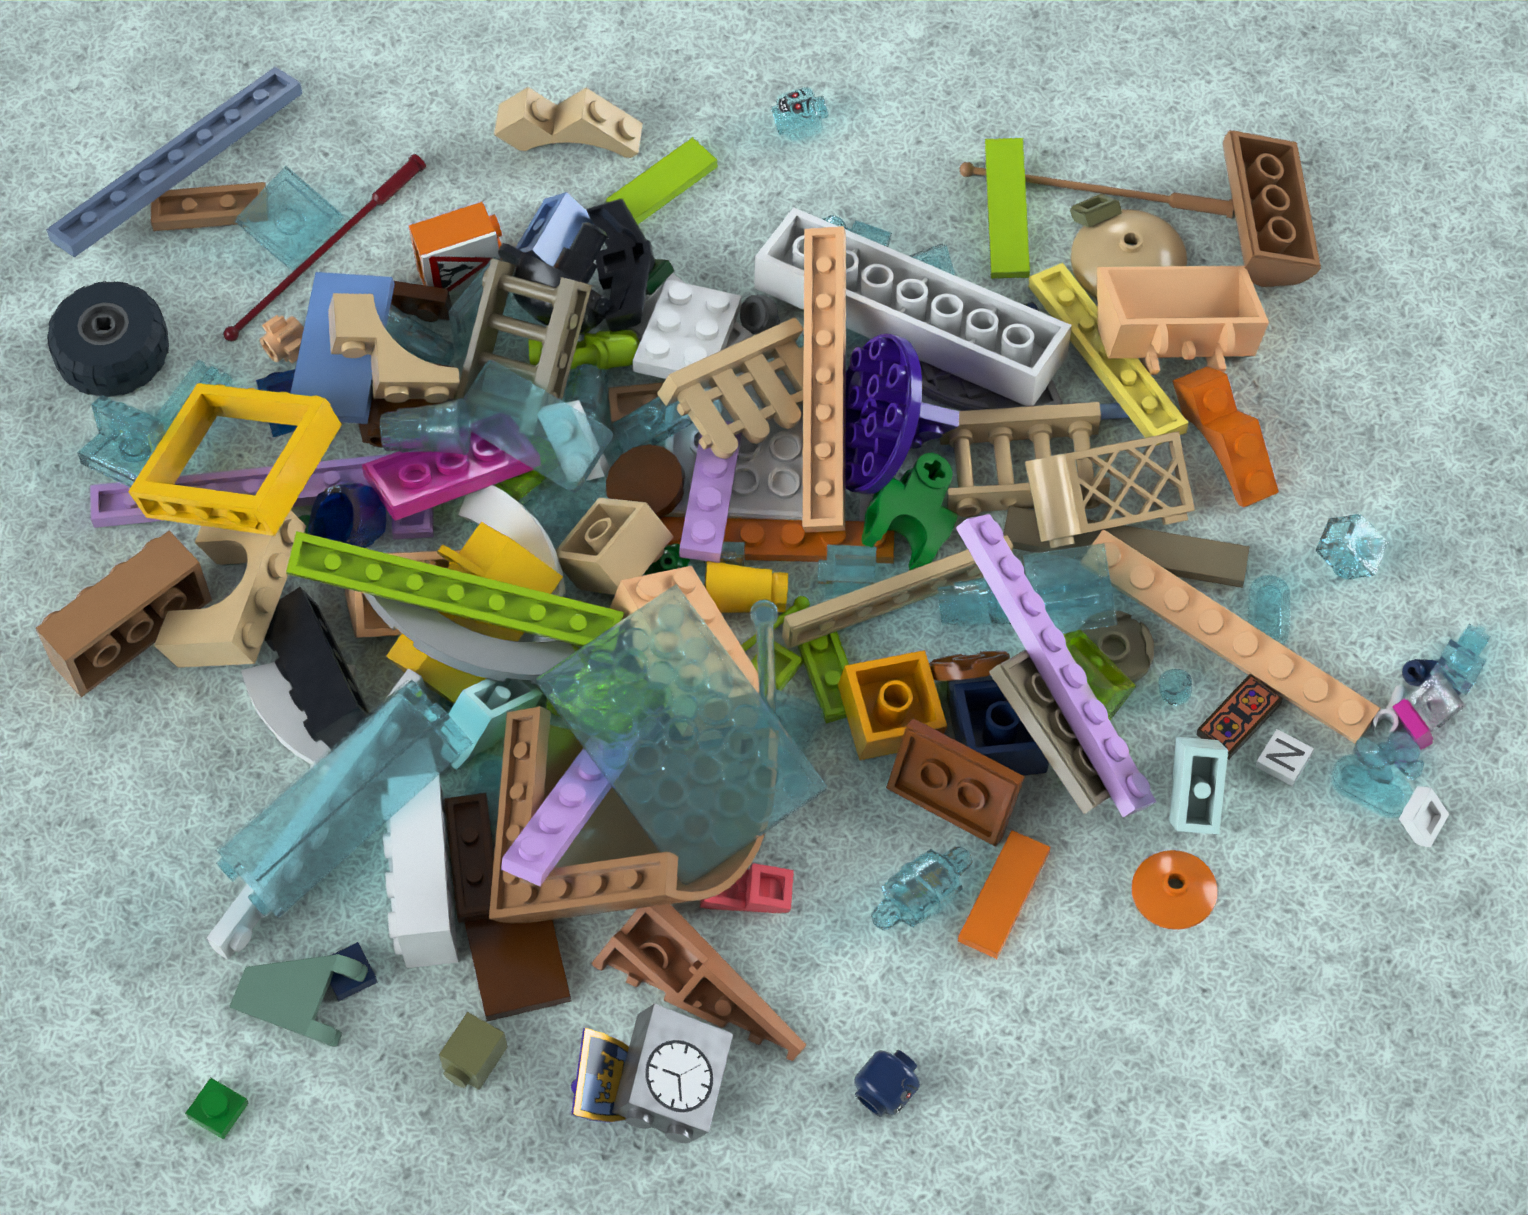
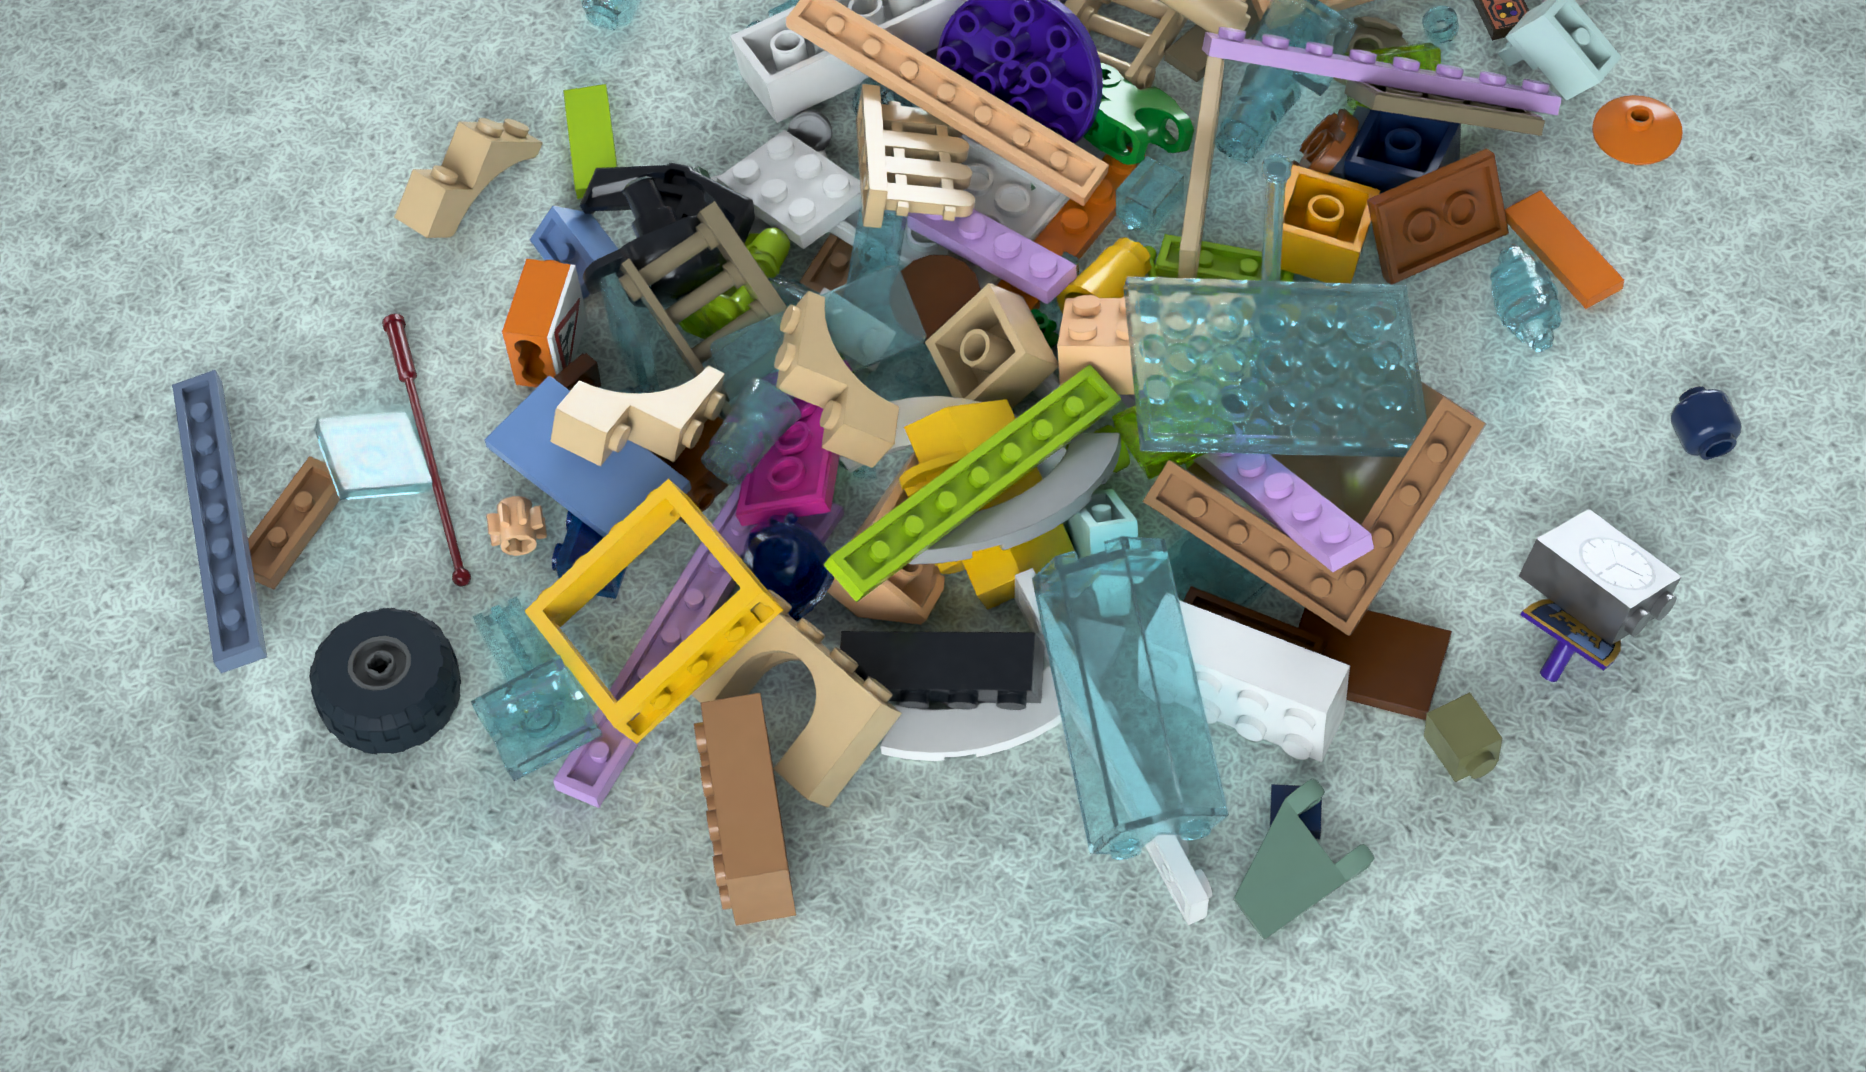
camera: 55 degrees left, 5 degrees down
(217, 1108) = (1376, 1001): green plate -> none
(474, 490) = (810, 368): none -> tan arch
(674, 957) = (1494, 525): nougat wedge -> none

